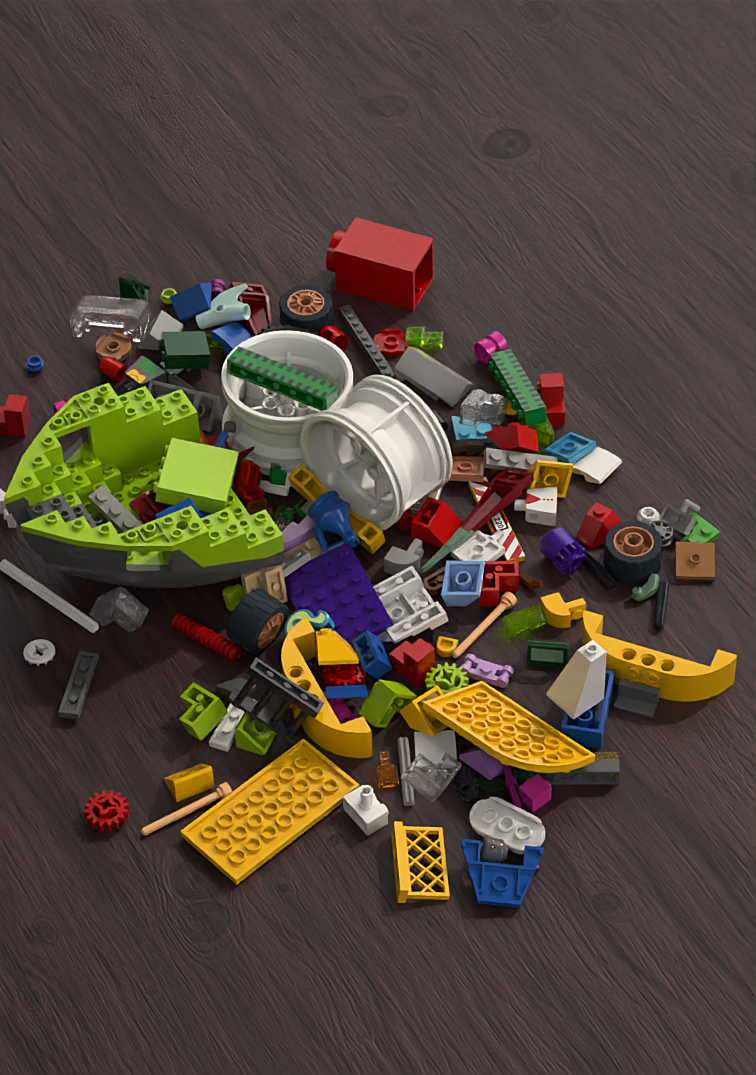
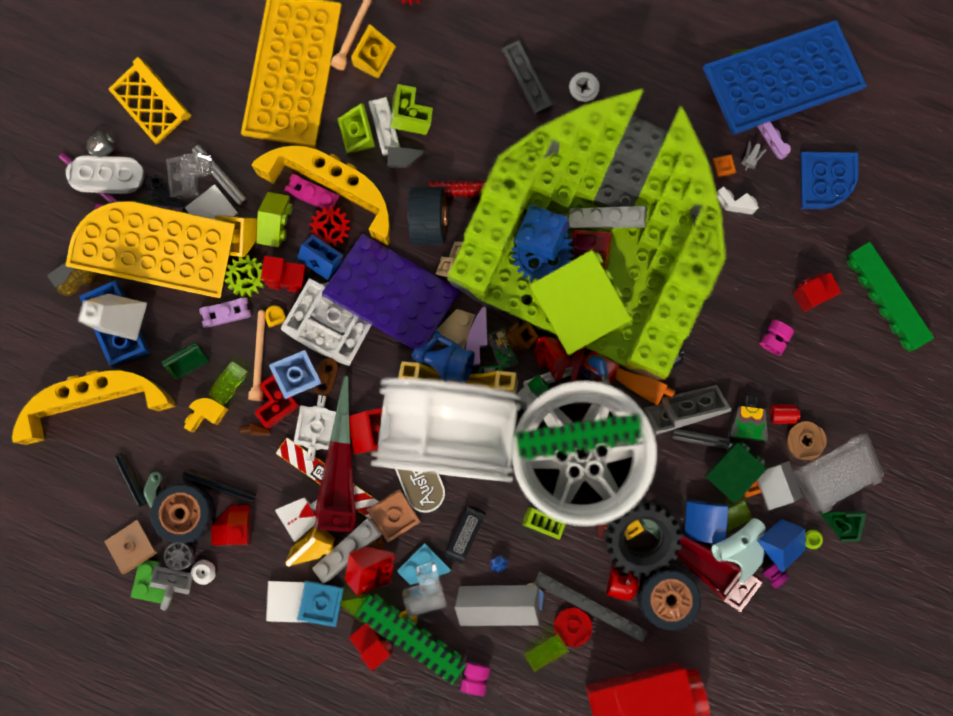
camera: 140 degrees right, 35 degrees up
(35, 363) = (856, 374): blue plate -> none
(285, 688) = (341, 134): black fence -> none
(294, 561) = (454, 304): light grey plate -> none
(317, 622) = (390, 249): dark azure animal -> none
(333, 649) = (345, 232): yellow slope -> none
(346, 692) = (304, 196): blue slope -> none
(366, 809) = (220, 116): white brick -> none
(386, 774) = (232, 163): clear orange plate -> none
(399, 559) = (366, 373): light grey brick -> none
(472, 446) = (410, 541): dark brown slope -> none
(497, 882) = (73, 120): blue wing -> none
(562, 550) = (241, 473): dark purple gear -> none
(637, 698) = (87, 362): dark grey panel -> none

